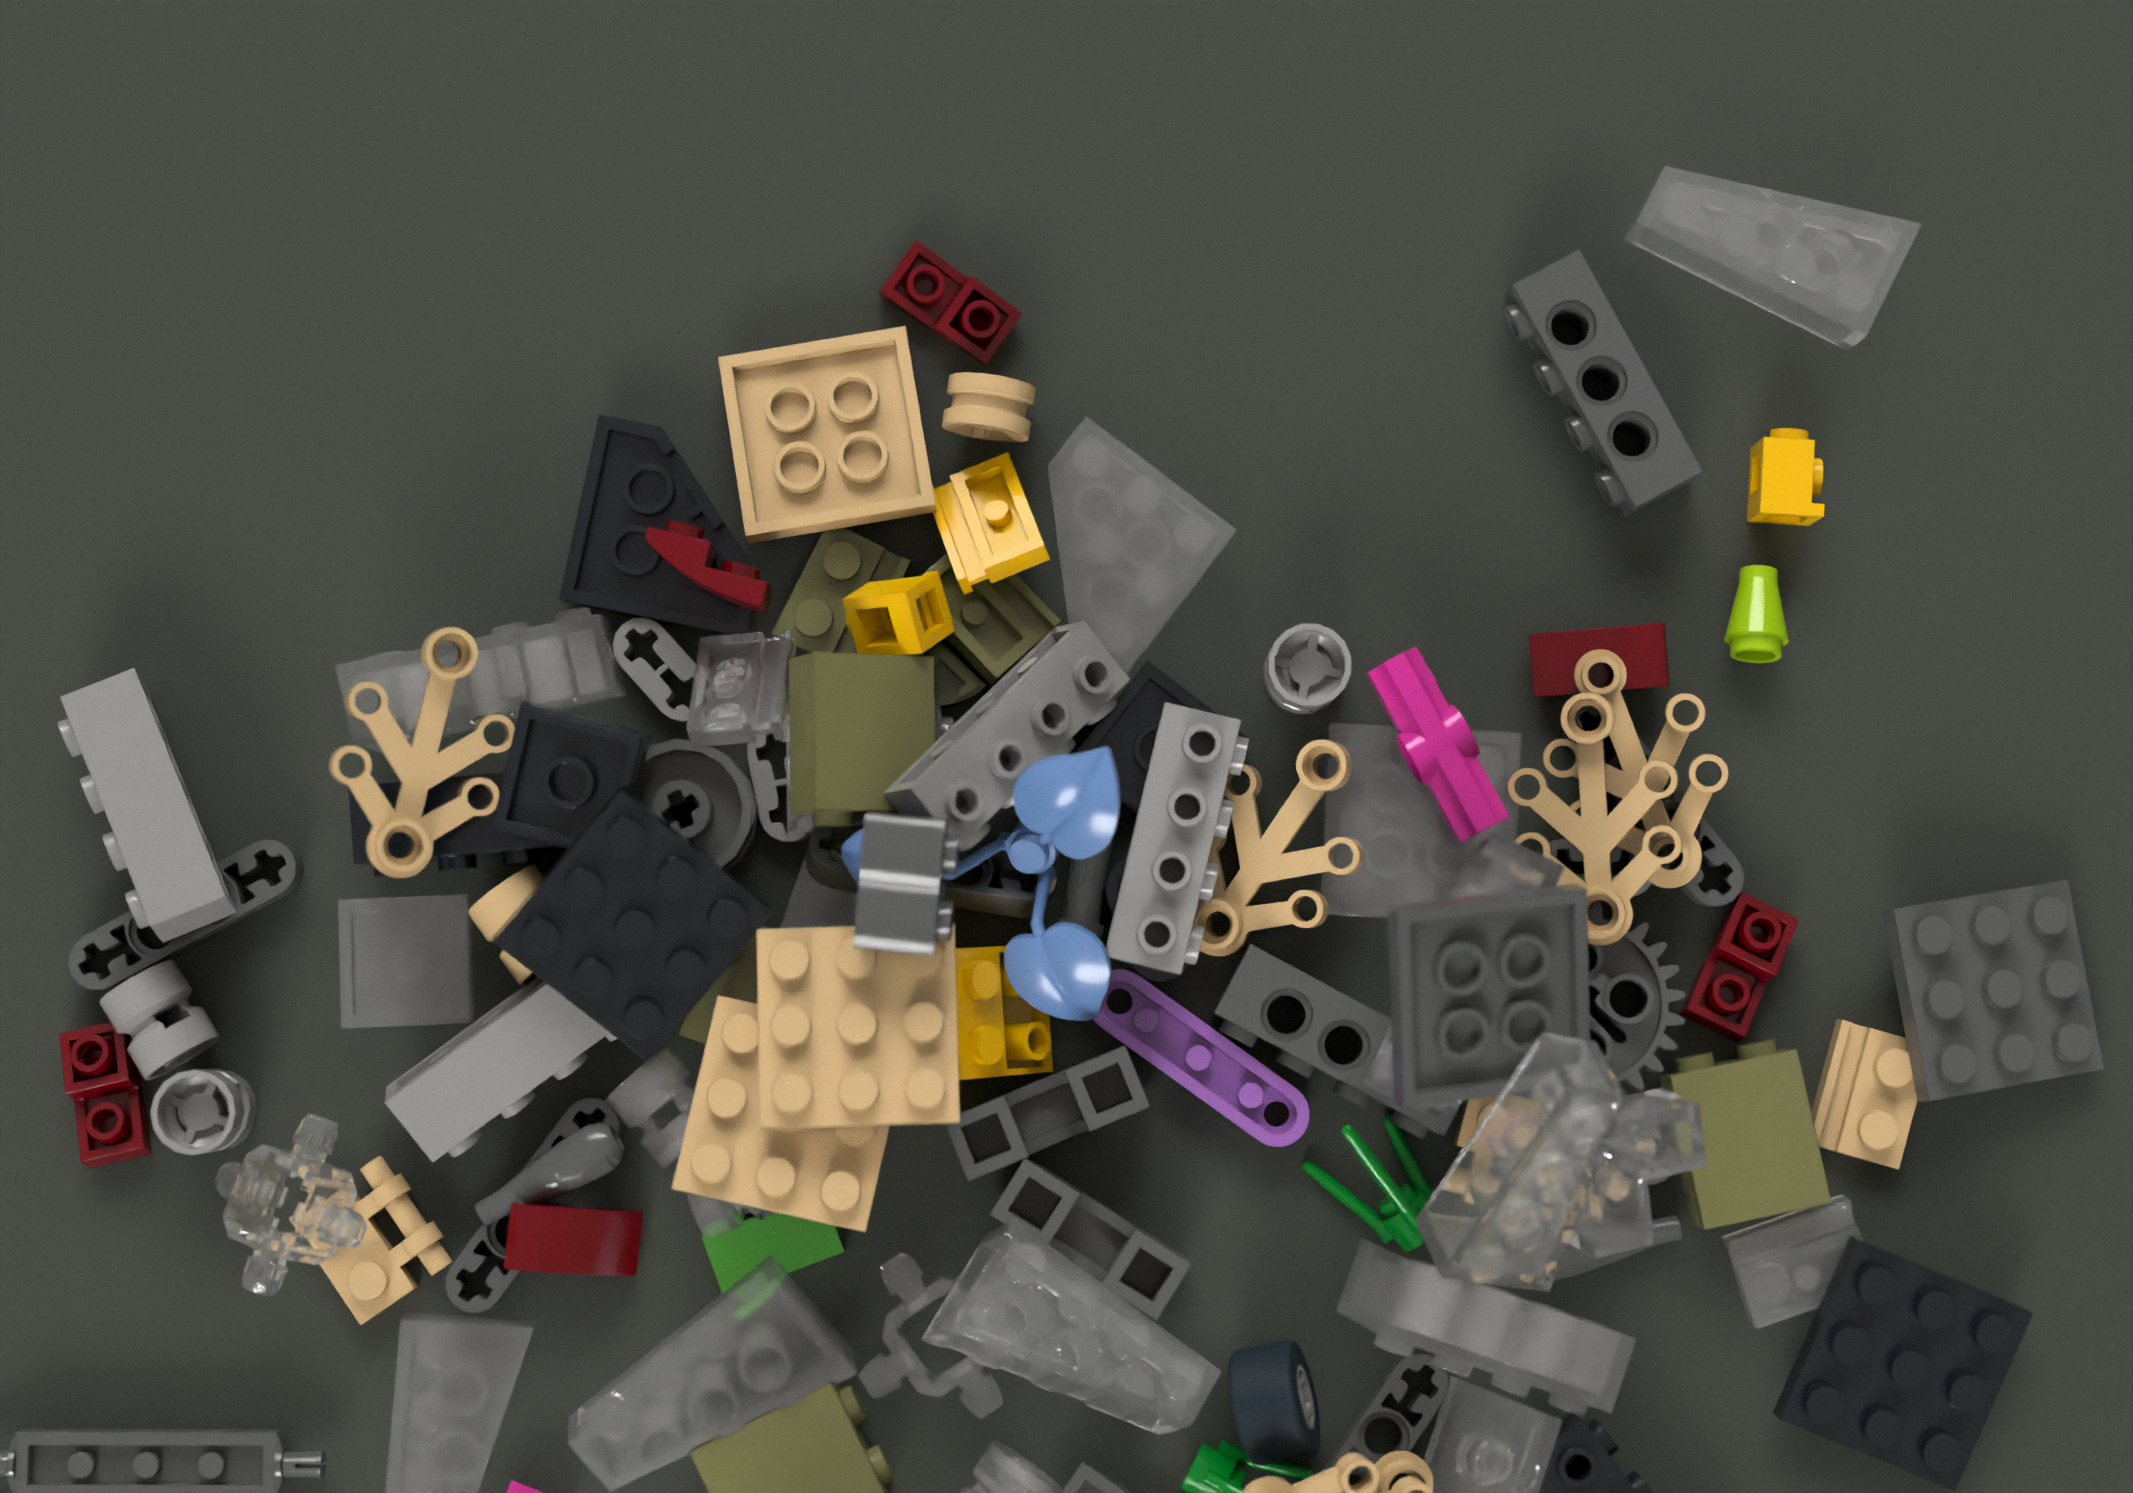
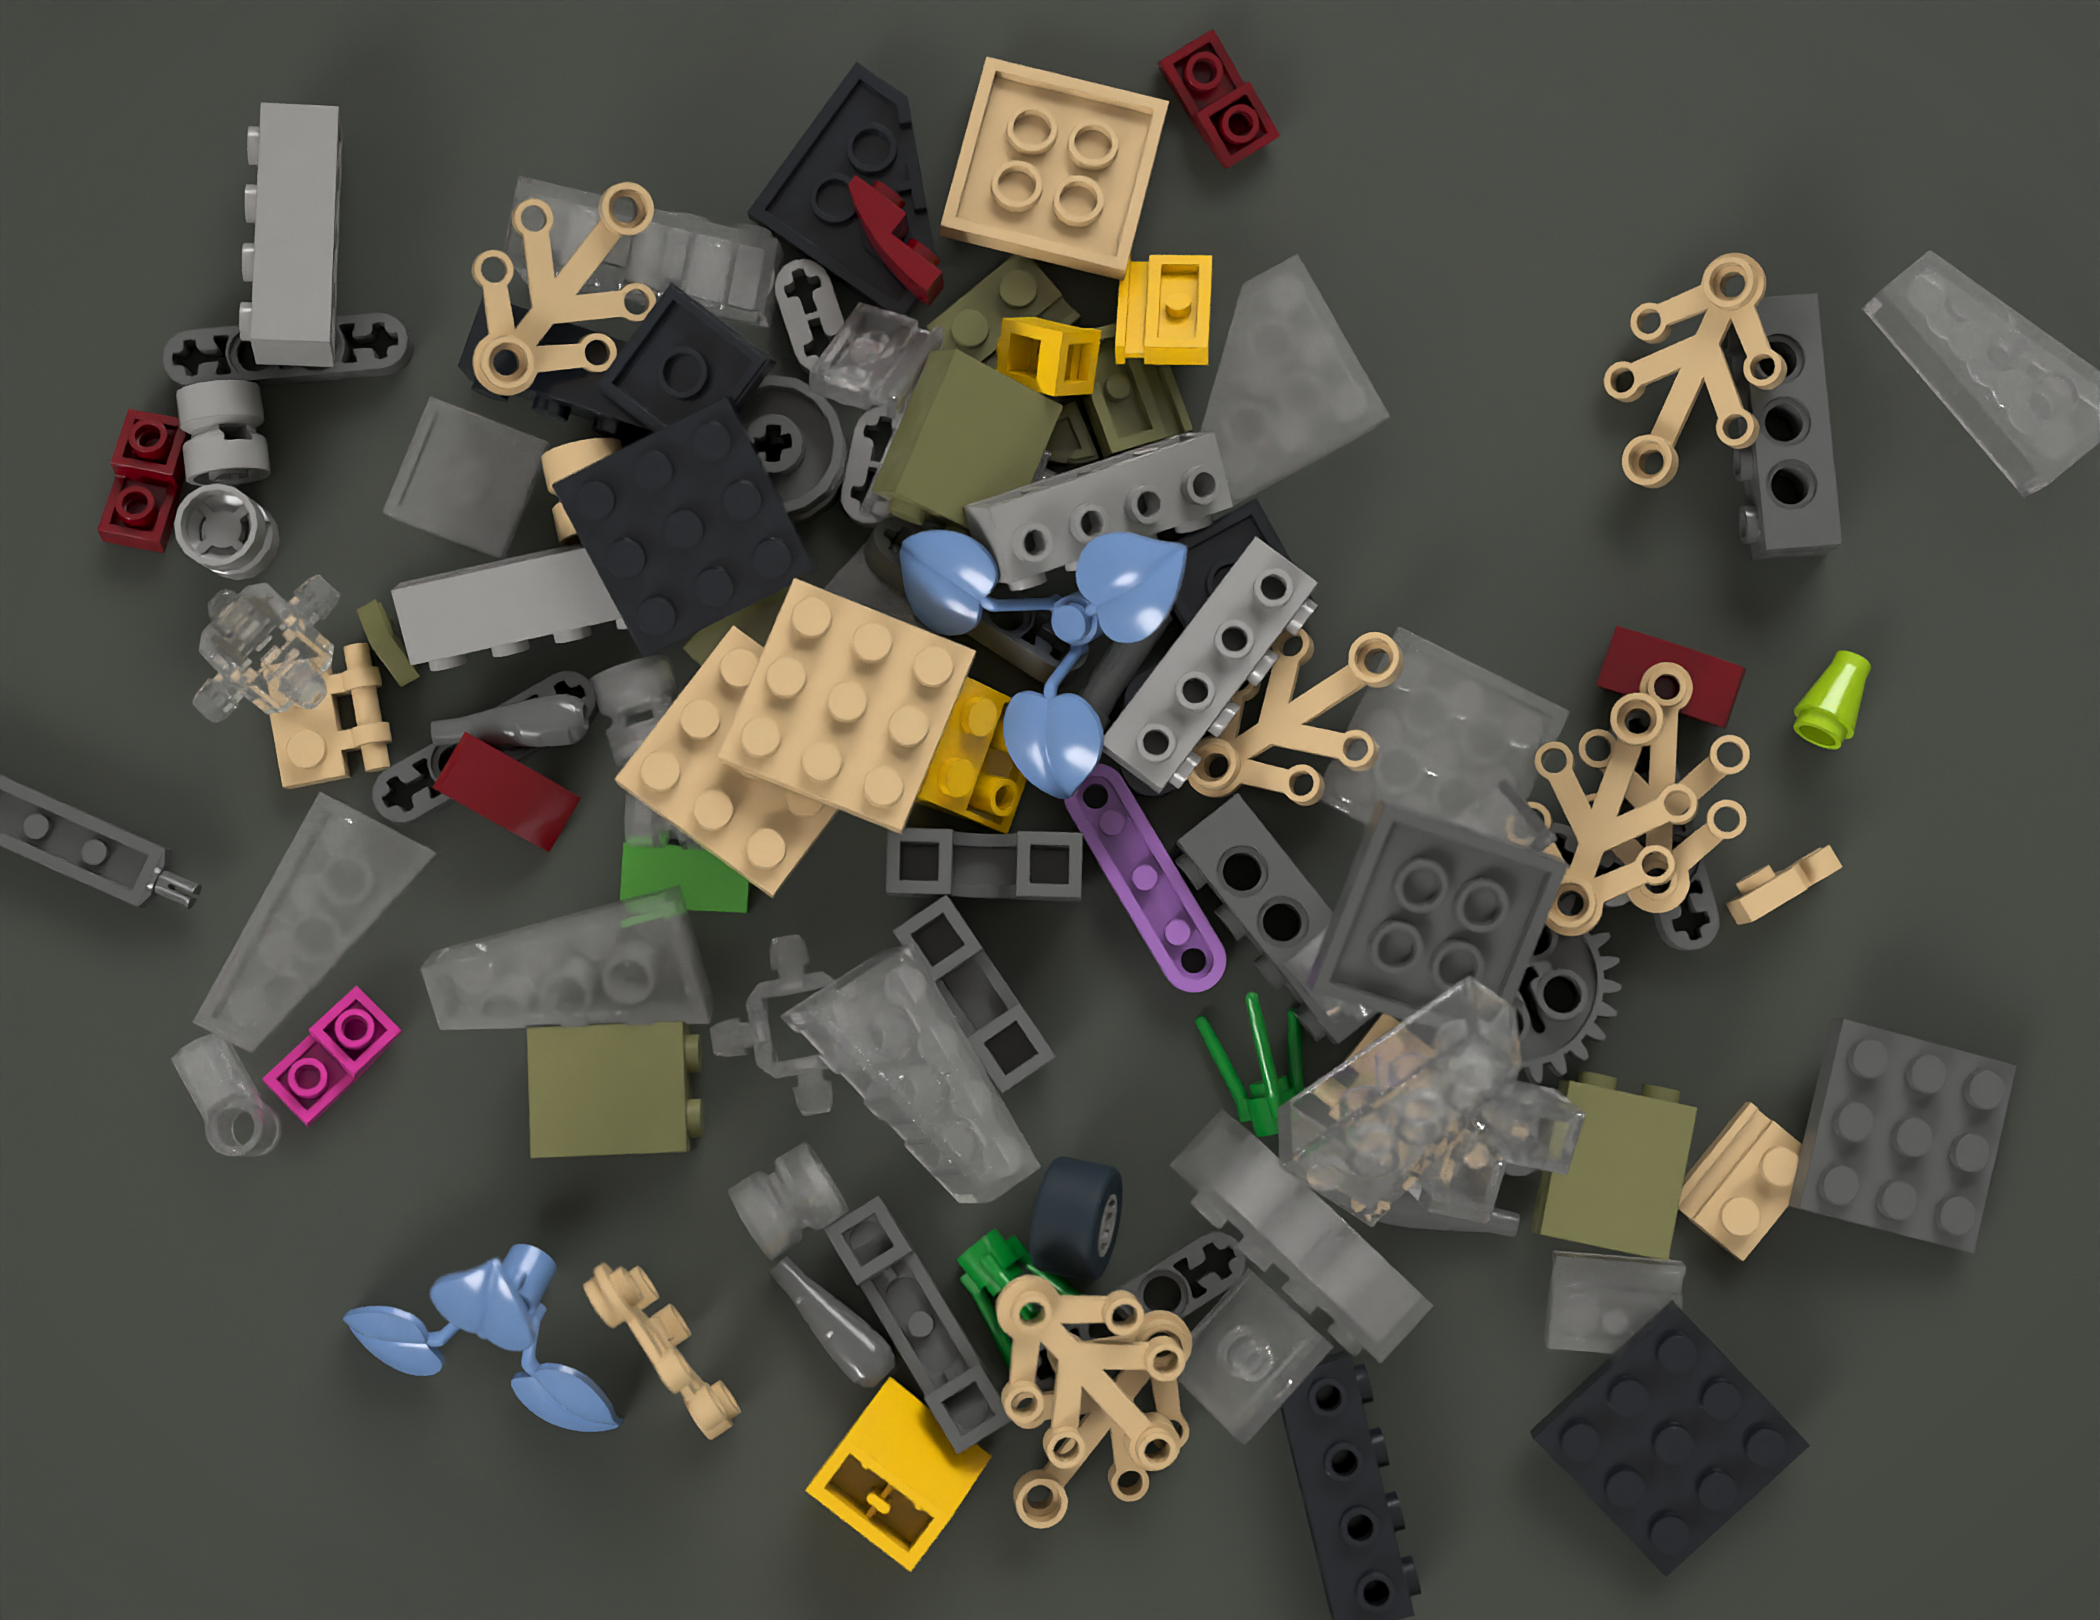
camera: 25 degrees right, 0 degrees up
(396, 1148) = (385, 642): none -> olive tile
(903, 882) = (945, 589): dark grey brick -> none
(988, 407) = (1212, 206): tan wheel -> none
(1306, 668) = (1398, 567): light grey wheel -> none
(1437, 744) = (1488, 686): dark pink piece -> none
(1498, 359) = (1698, 360): none -> tan plant
(1739, 967) = (1677, 1013): dark red slope -> none
(1774, 817) = (1767, 890): none -> tan plate
(1784, 479) = (1914, 587): yellow brick -> none

